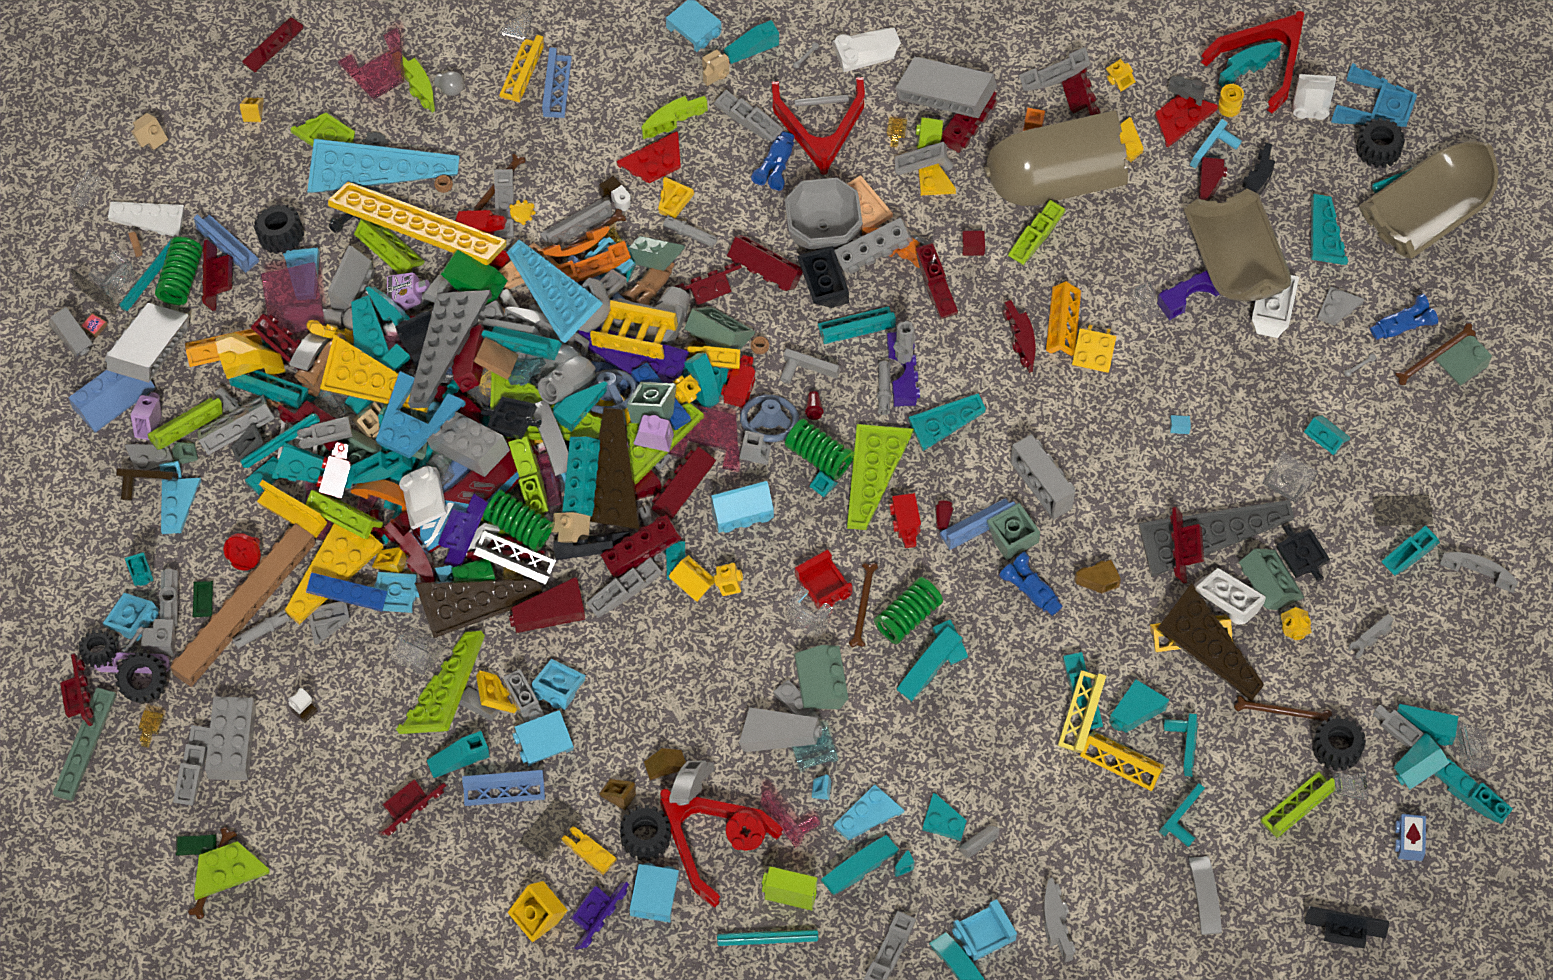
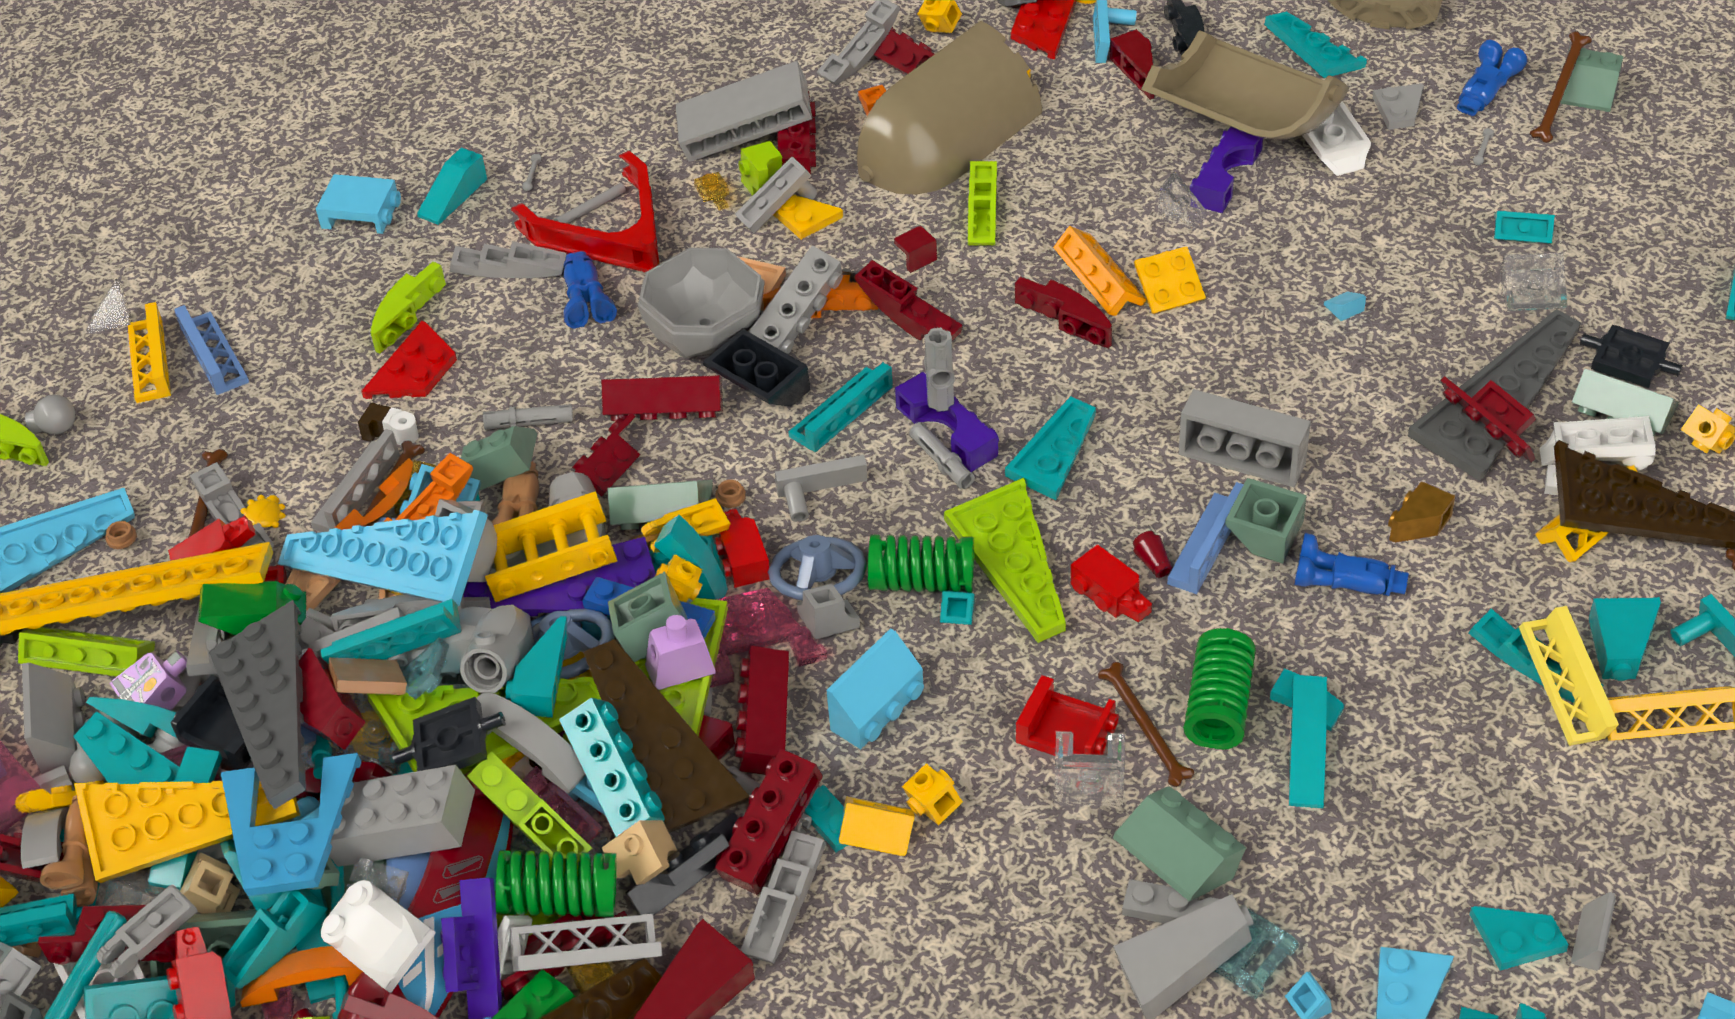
camera: 30 degrees left, 15 degrees down
(674, 197) = (474, 391): yellow wing -> none
(715, 67) = (422, 230): tan brick -> none
(814, 406) = (865, 522): dark red cone -> none
(866, 48) = (604, 130): white slope -> none
(1402, 510) = (1686, 257): clear smoke piece -> none

